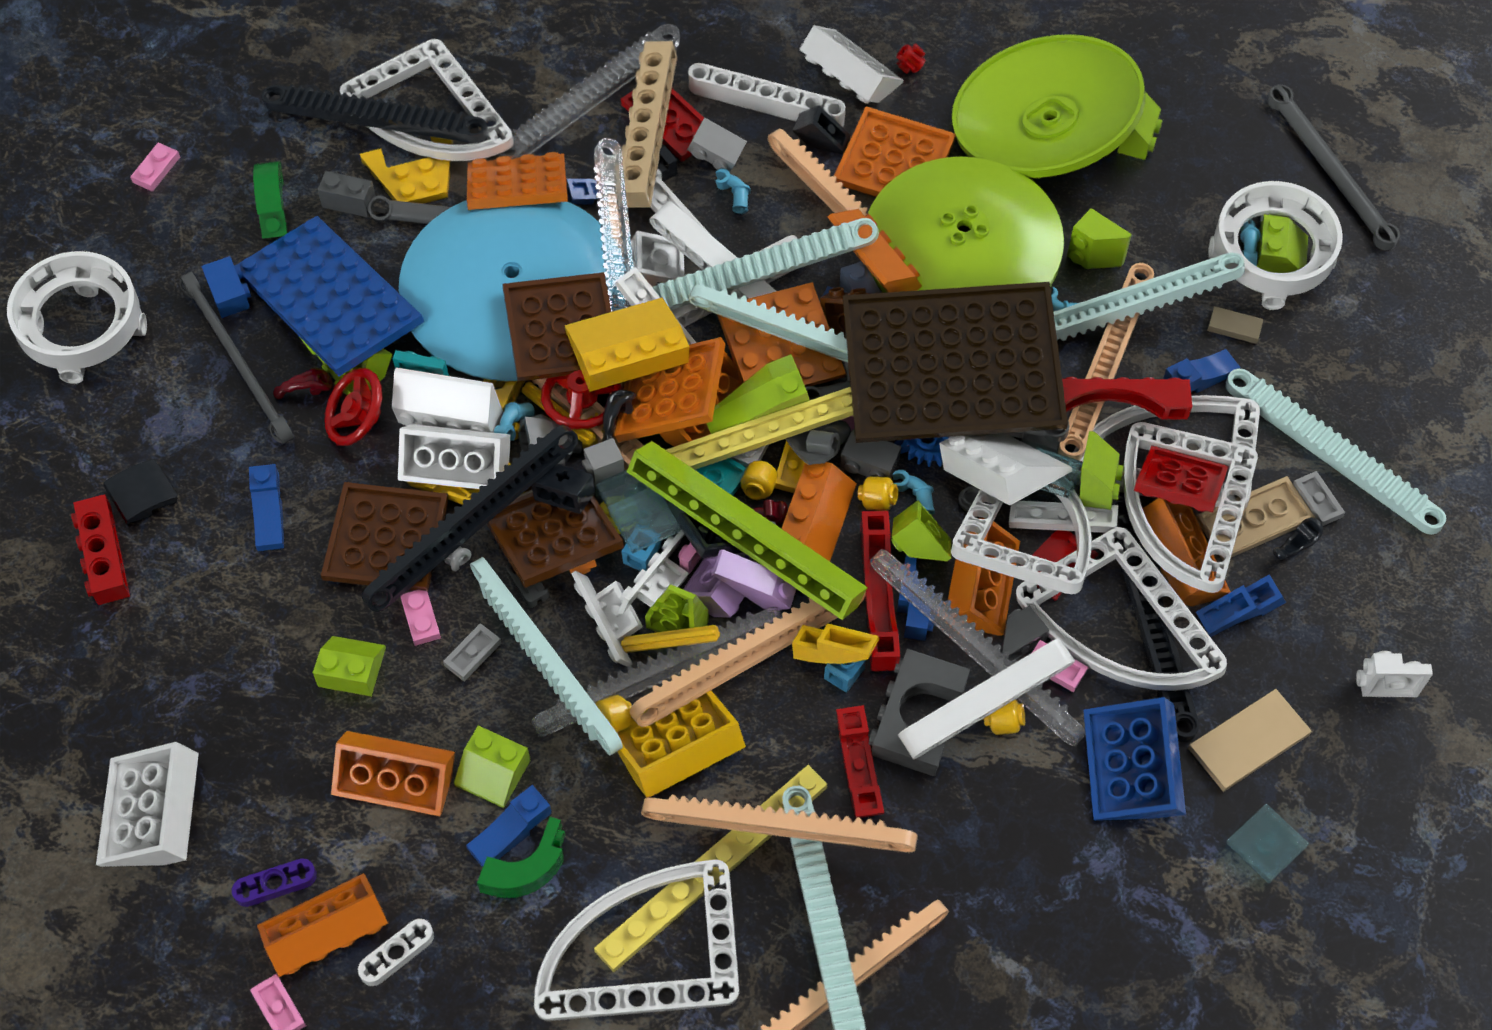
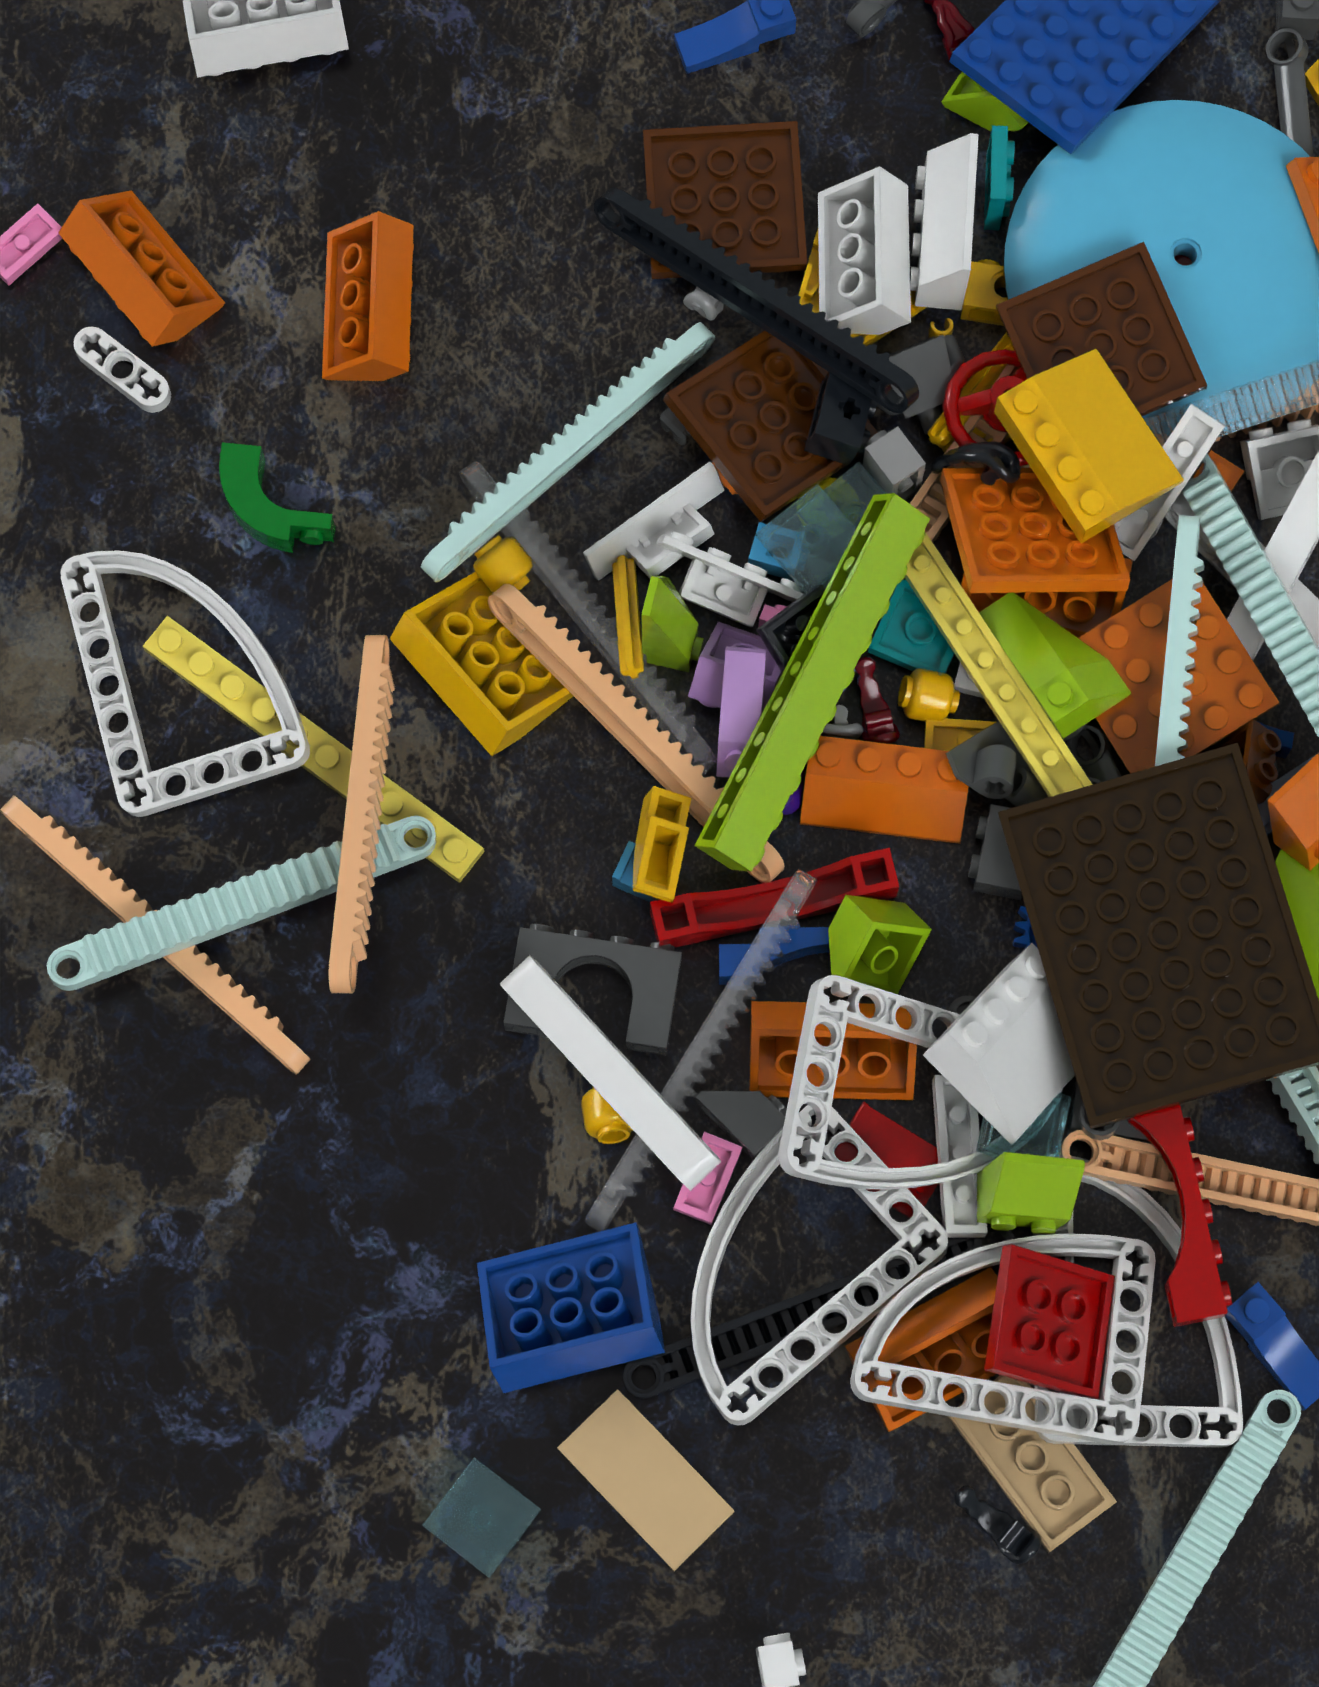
camera: 80 degrees right, 15 degrees up
(256, 897) = (190, 178): dark purple beam -> none
(348, 665) = (519, 203): lime slope -> none
(358, 407) = (920, 105): red piece -> none
(420, 617) = (612, 279): bright pink plate -> none
(472, 652) = (568, 359): light grey plate -> none
(491, 766) = (400, 425): lime slope -> none
(511, 826) = (316, 469): blue slope -> none
(513, 413) = (956, 320): medium azure piece -> none
(859, 762) = (497, 919): red slope -> none
(878, 493) = (942, 874): yellow head -> none
(920, 489) = (965, 938): medium azure piece -> none
(1241, 605) = (863, 1446): blue slope -> none
(1319, 498) = (1083, 1554): light grey plate -> none

